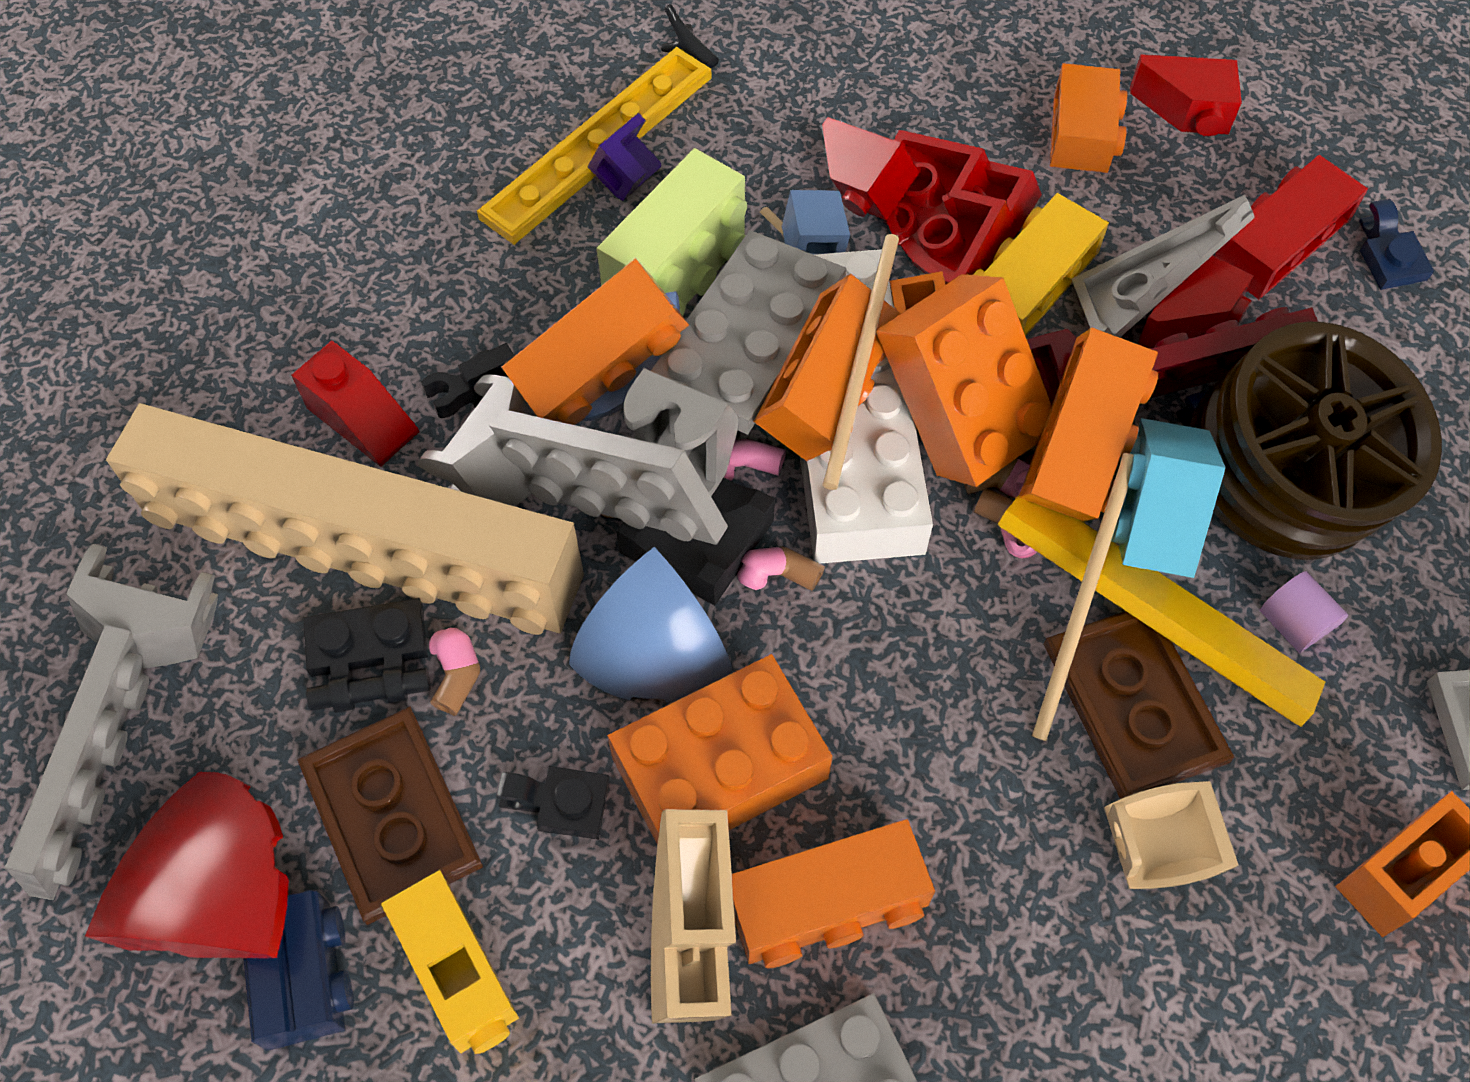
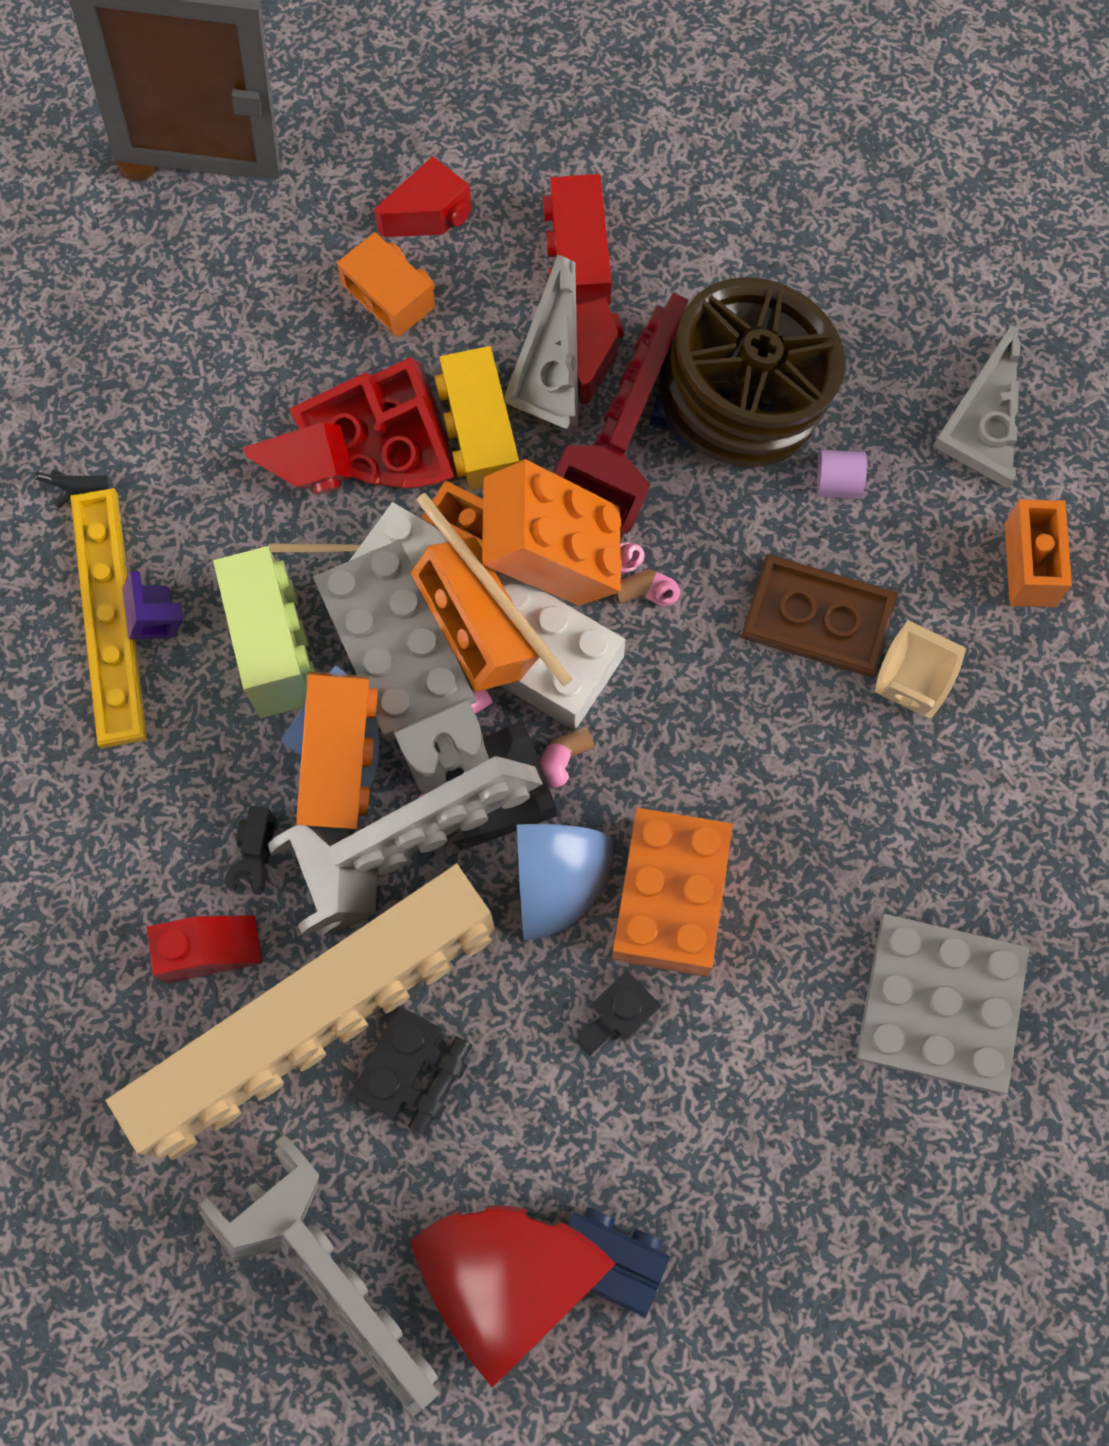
camera: 50 degrees left, 10 degrees up
(388, 811) = (540, 1131): reddish brown tile -> none
(451, 964) = (682, 1156): yellow brick -> none
(460, 666) = (470, 1012): arm -> none
(692, 918) = (769, 986): tan slope -> none
(816, 222) = (326, 529): medium blue brick -> none
(830, 894) = (808, 893): orange brick -> none
(1084, 599) = (745, 589): tan axle -> none
(1090, 425) = (647, 493): orange brick -> none
(1169, 498) = (721, 487): medium azure brick -> none
(1171, 612) = (773, 550): yellow tile -> none
(1390, 255) = (648, 200): dark blue plate -> none

